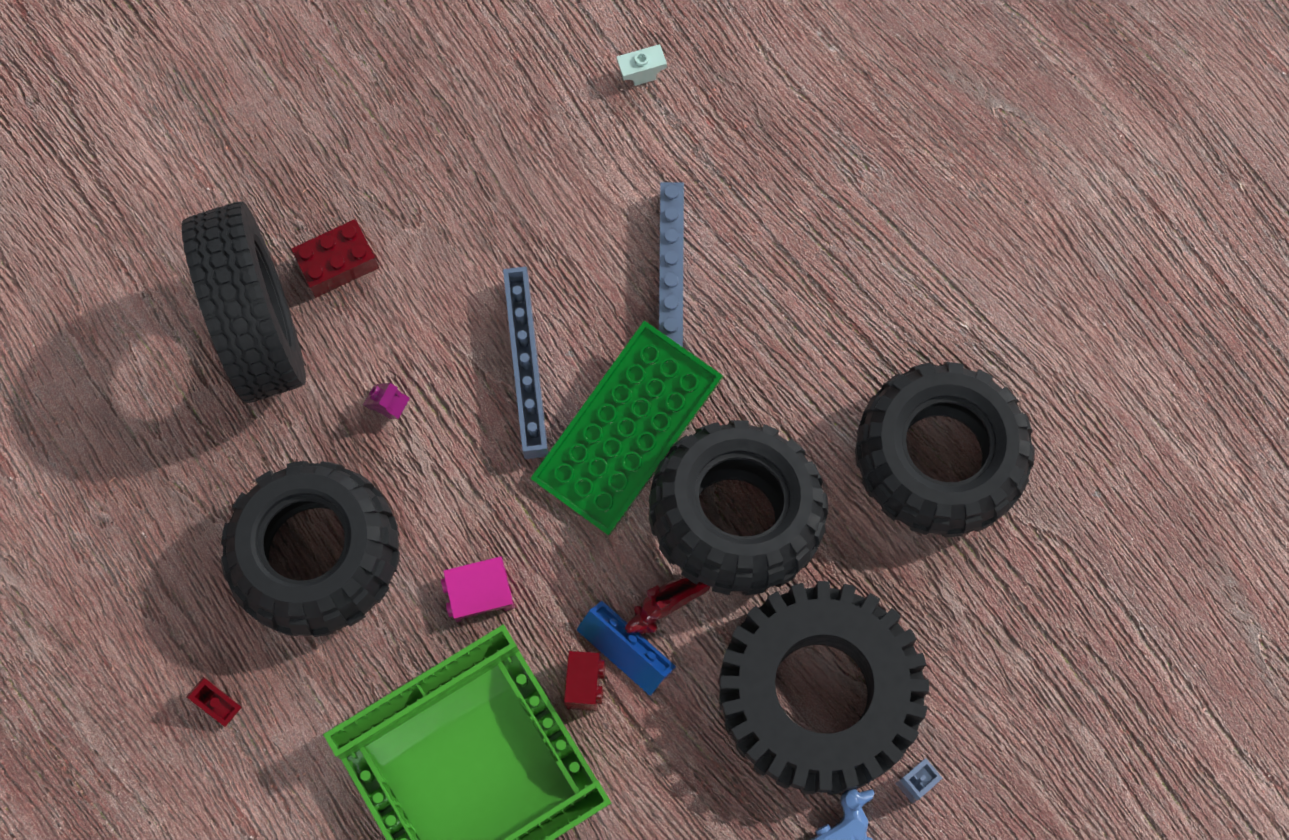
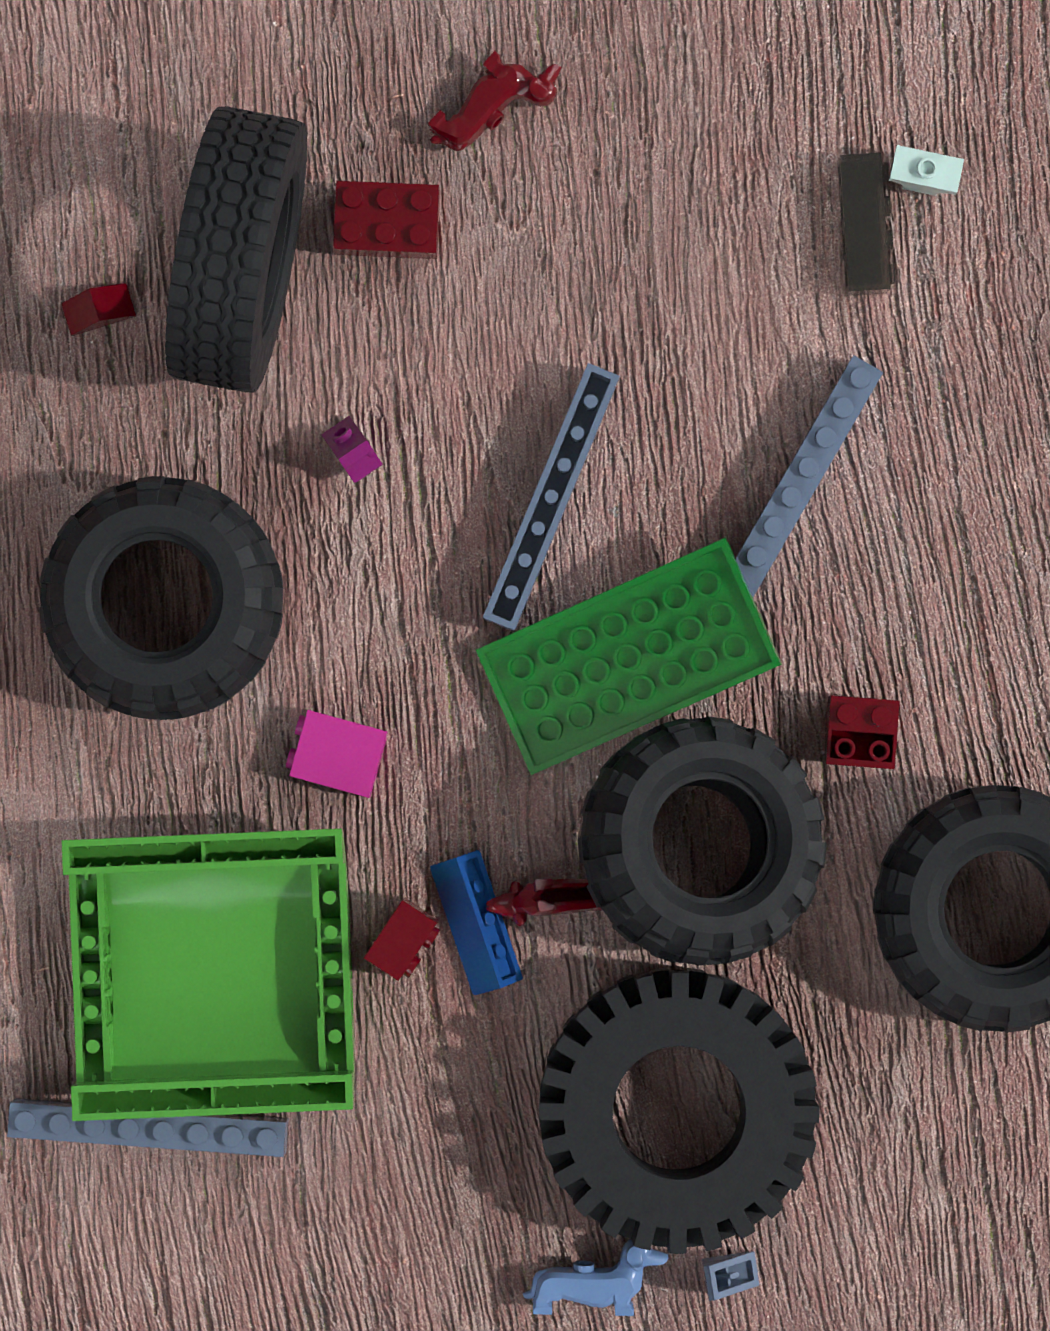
camera: 30 degrees right, 15 degrees up
(181, 404) = (98, 308): none -> dark red slope
(360, 159) = (489, 98): none -> dark red animal
(623, 113) = (864, 224): none -> clear smoke brick
(795, 394) = (861, 732): none -> dark red slope

